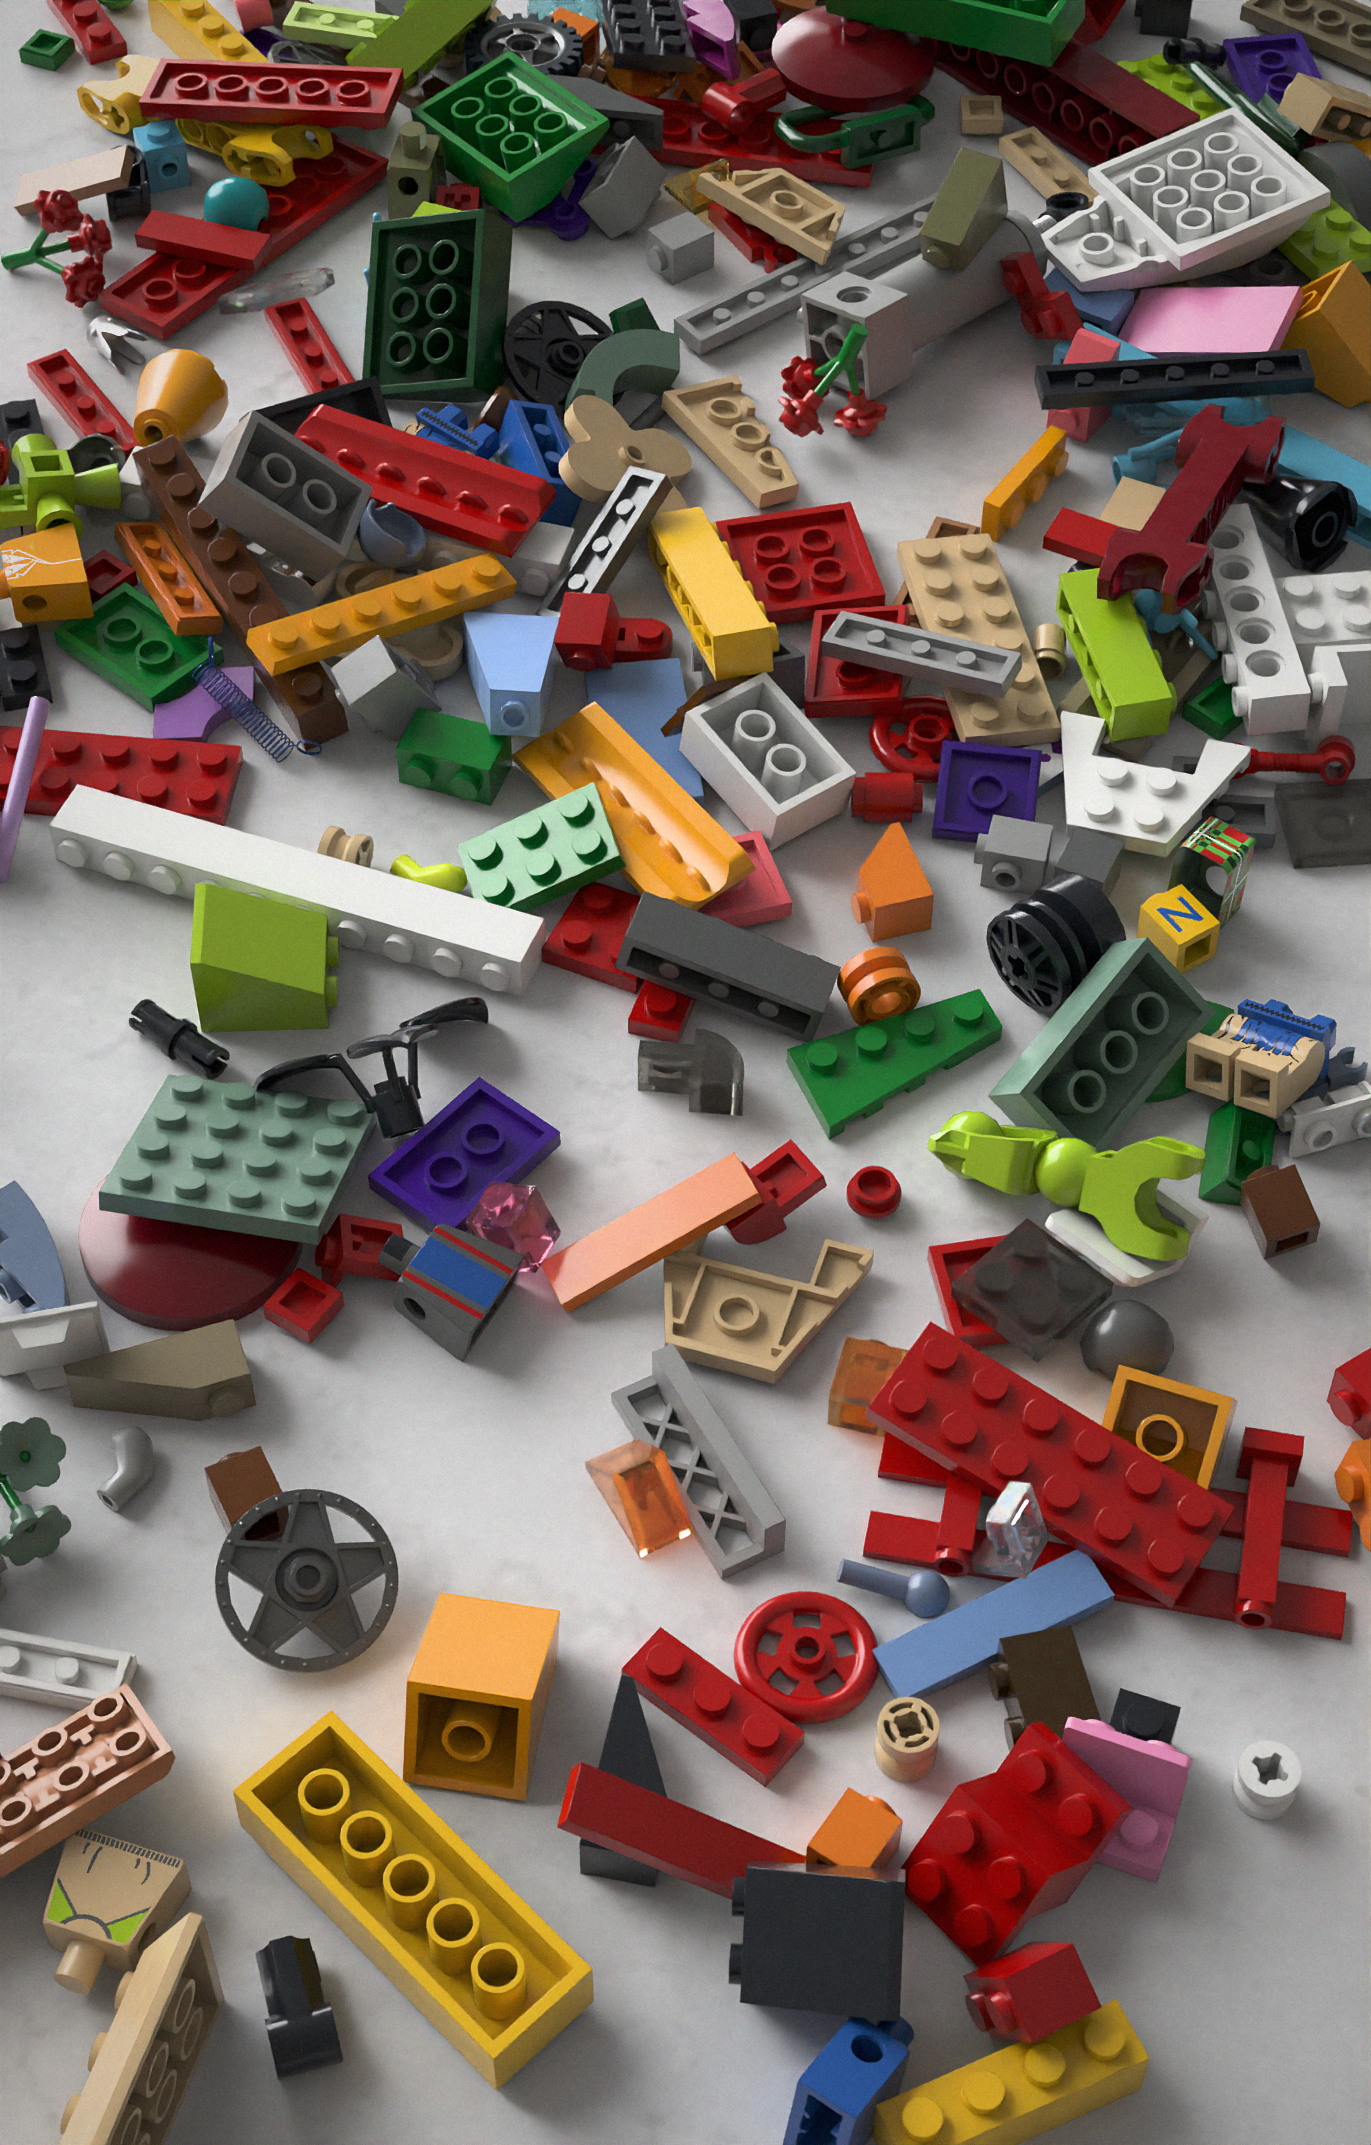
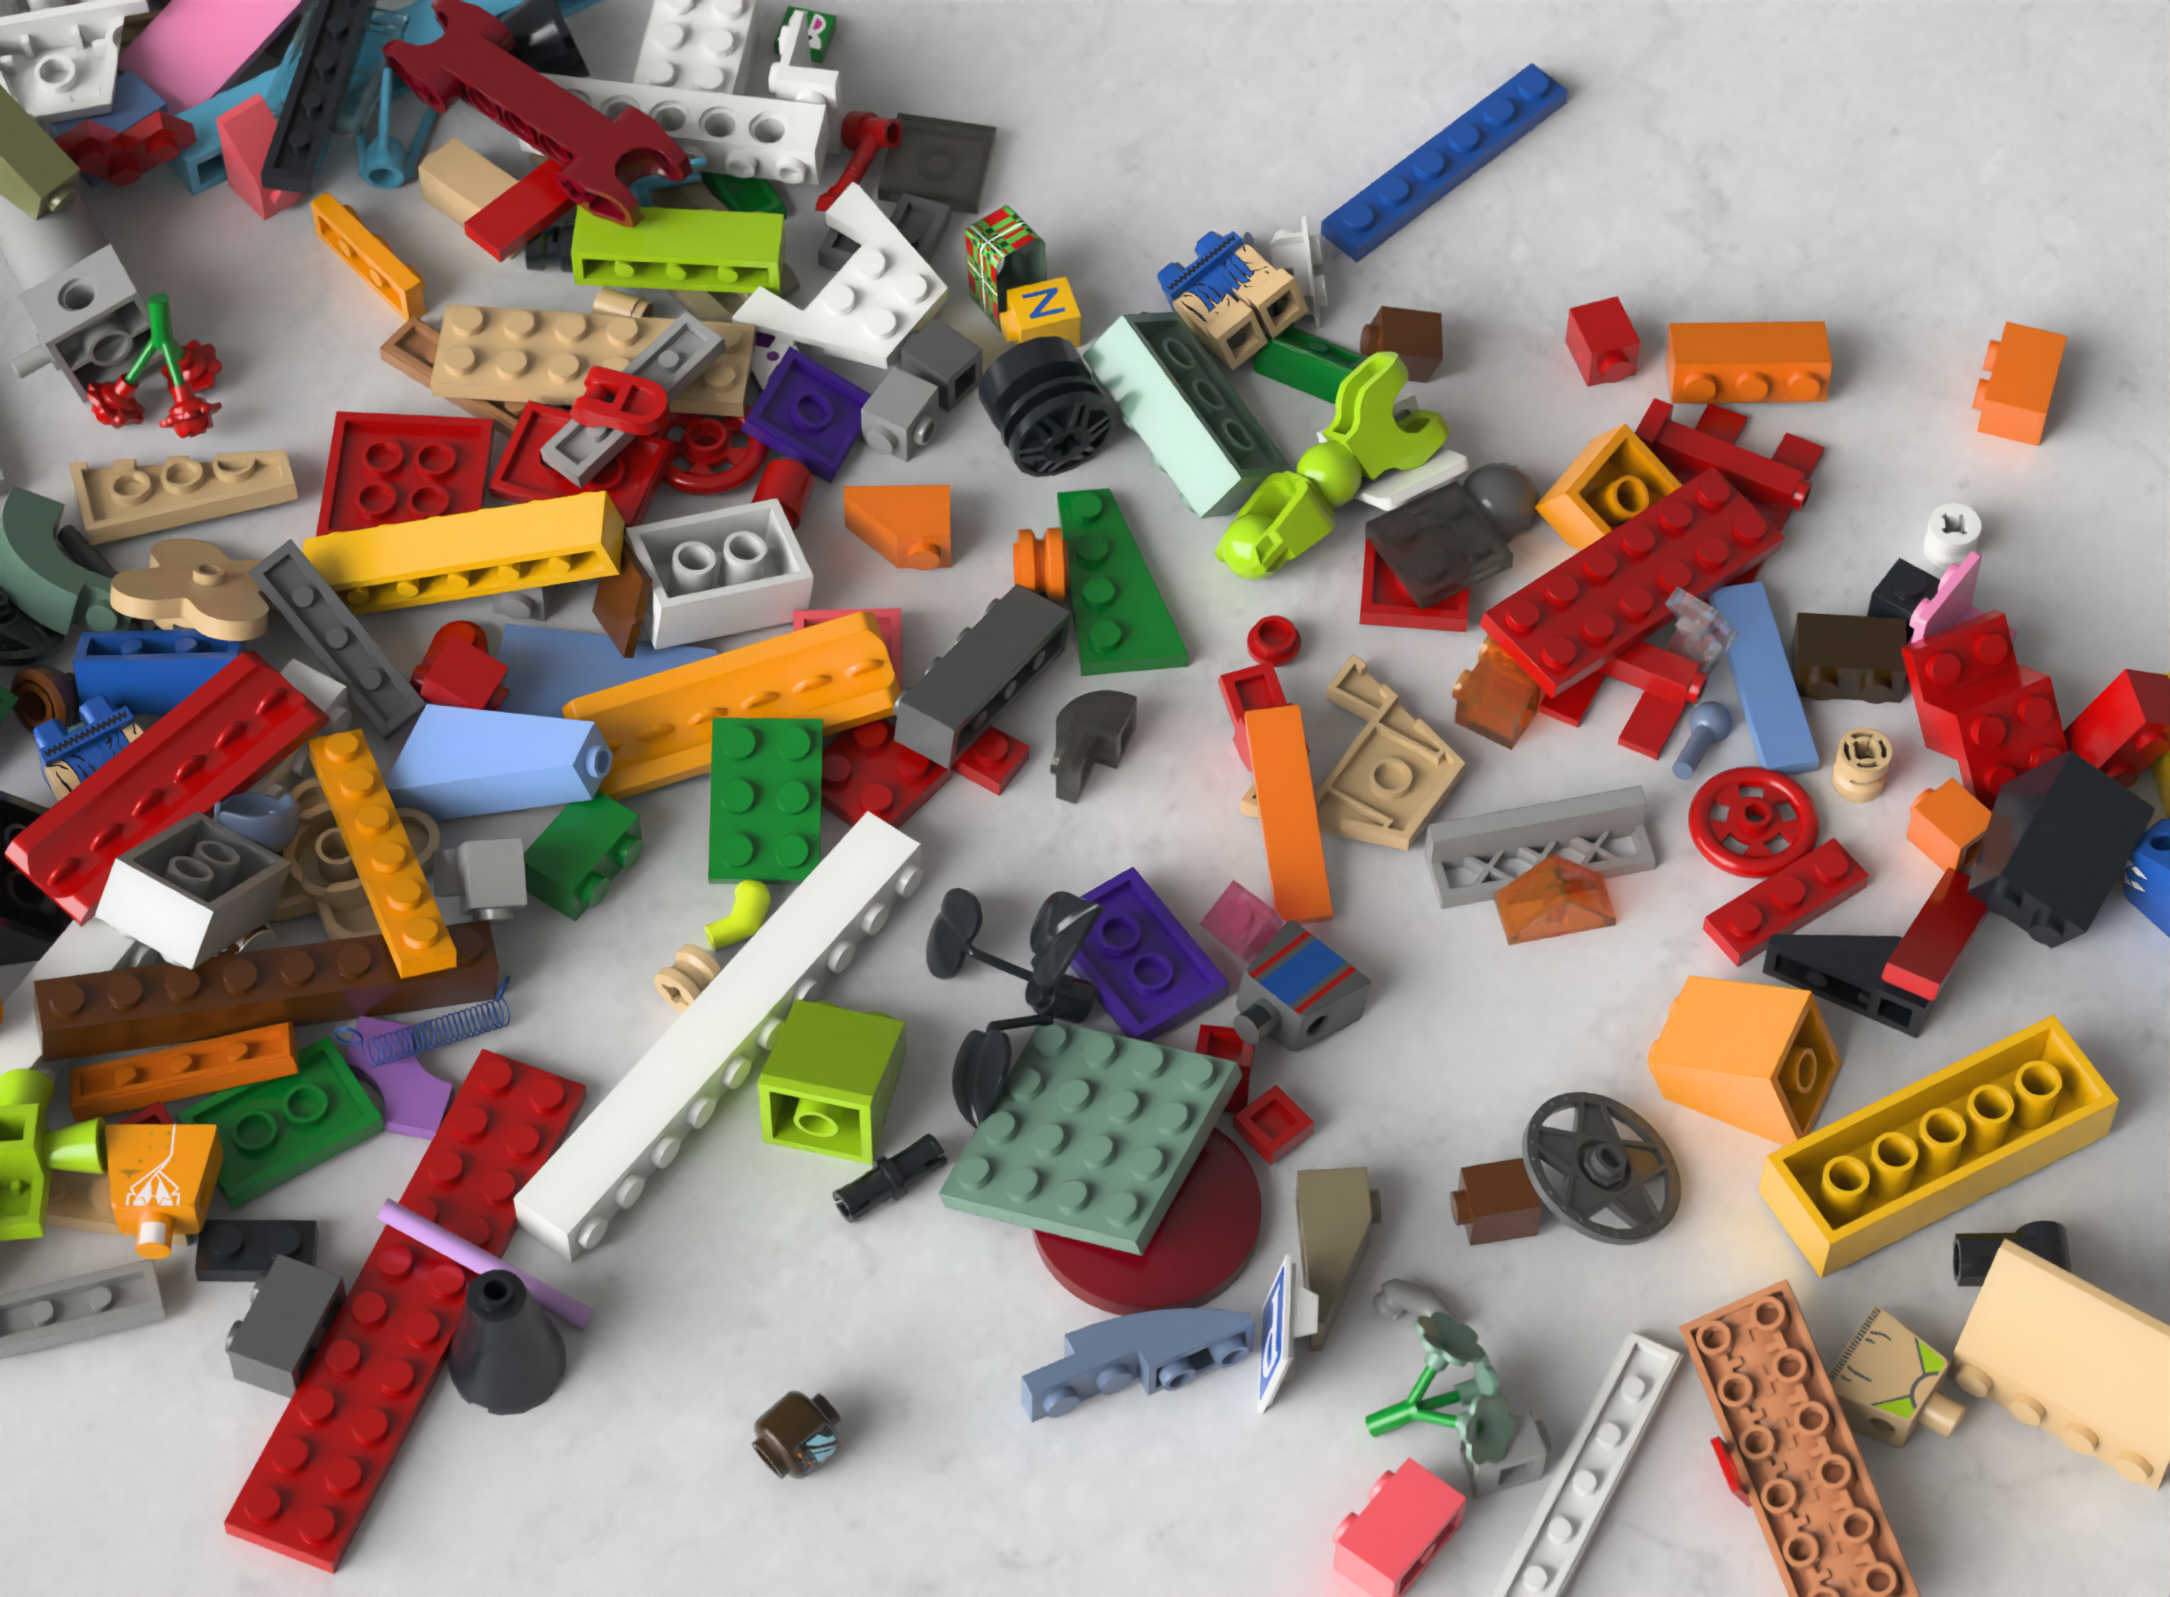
camera: 75 degrees left, 5 degrees up
(897, 636) = (637, 409): none -> red plate

